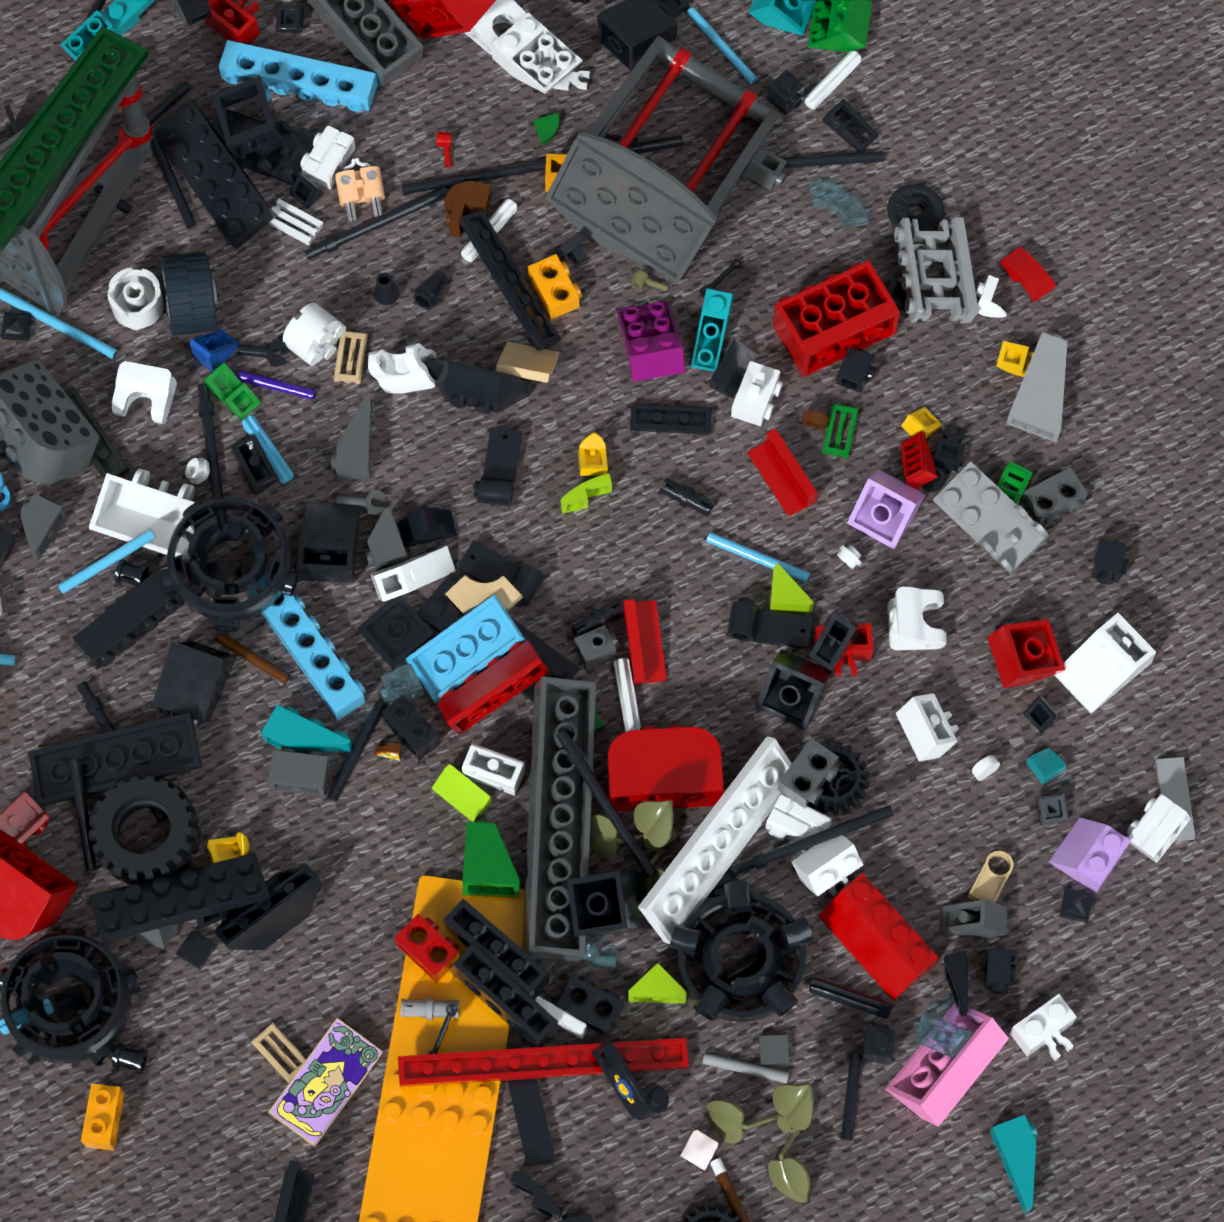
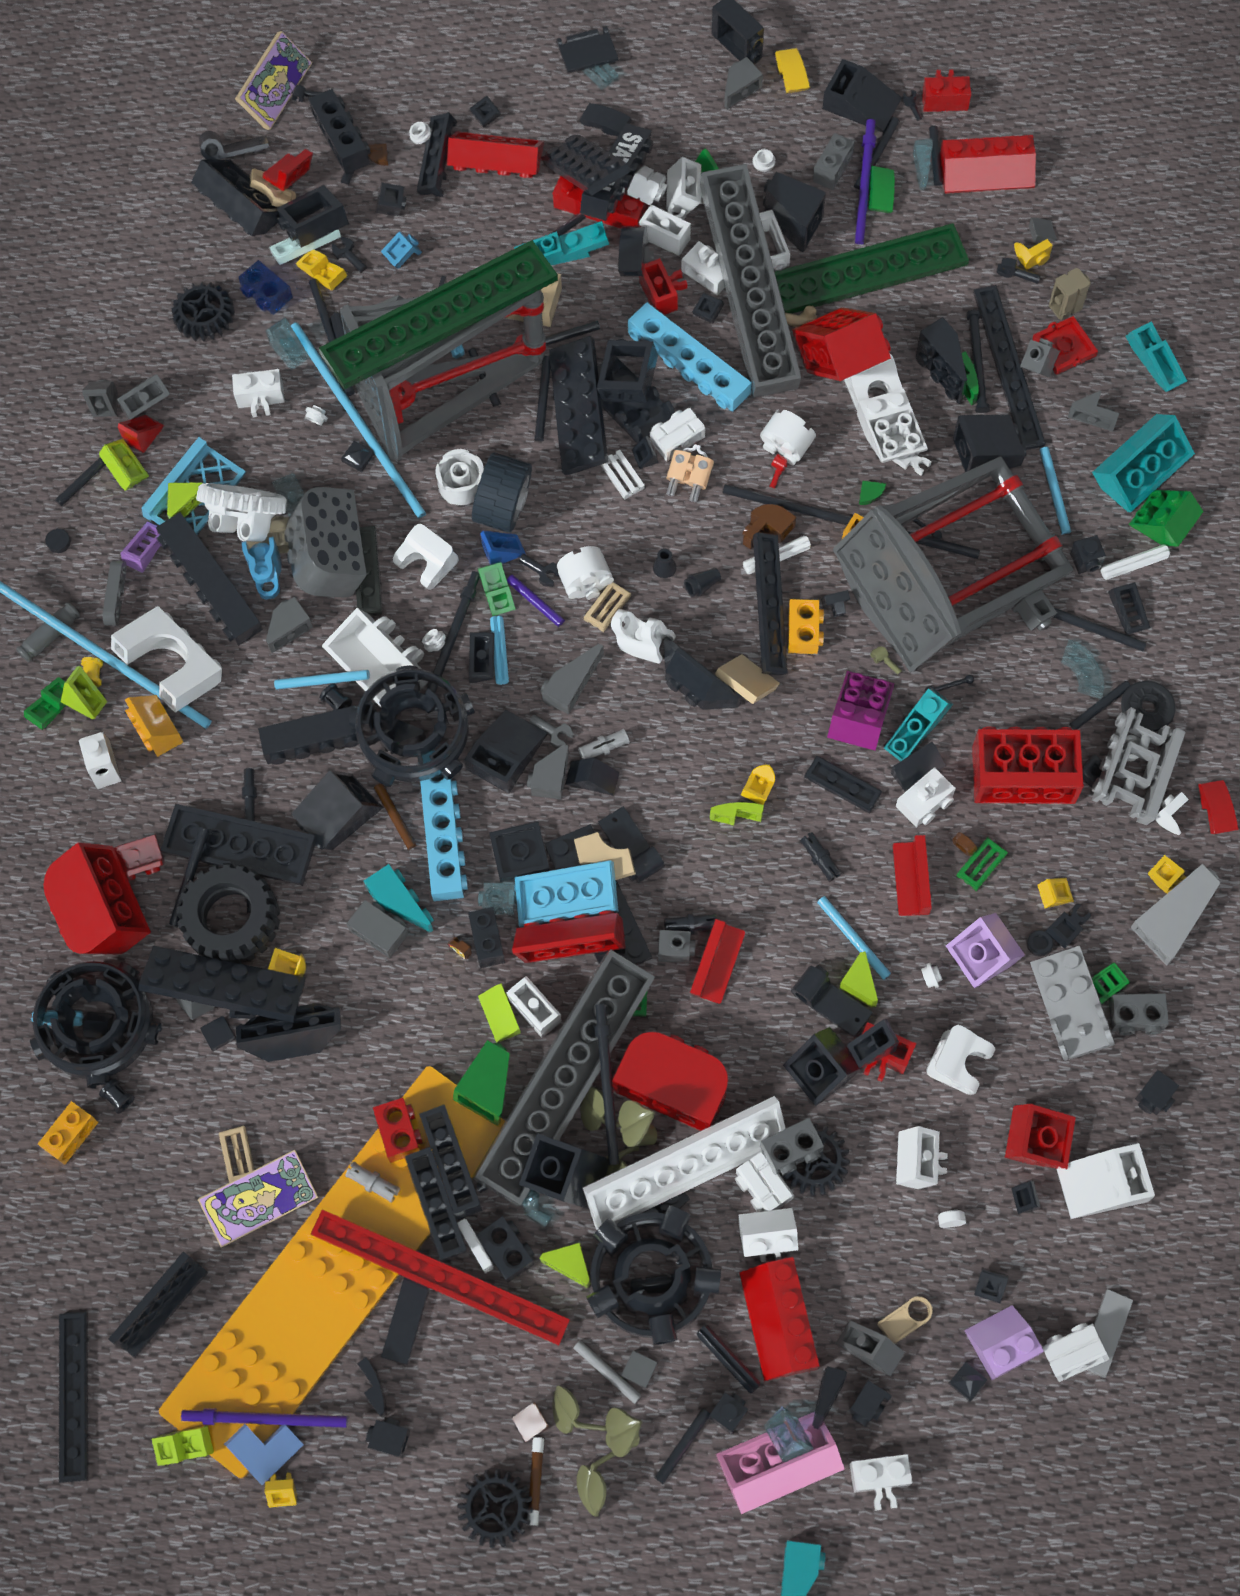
camera: 30 degrees right, 0 degrees up
(331, 243) = (642, 505): black bar -> none
(356, 751) = (433, 934): black bar -> none
(412, 573) = (558, 809): white slope -> none
(433, 478) = (591, 750): none -> light grey pin
(439, 109) = (787, 436): none -> white brick
(451, 1010) = (386, 1193): black hinge -> none
(500, 468) = (678, 757): black door -> none
(627, 694) = (679, 1001): white axle -> none
(638, 1101) = (501, 1355): black door -> none
(759, 859) = (714, 1200): black bar -> none
(856, 369) = (1022, 818): black brick -> none
(871, 230) = (1099, 706): none -> black bar
(927, 472) = (1036, 936): red slope -> none
(1046, 765) = (1006, 1244): teal slope -> none

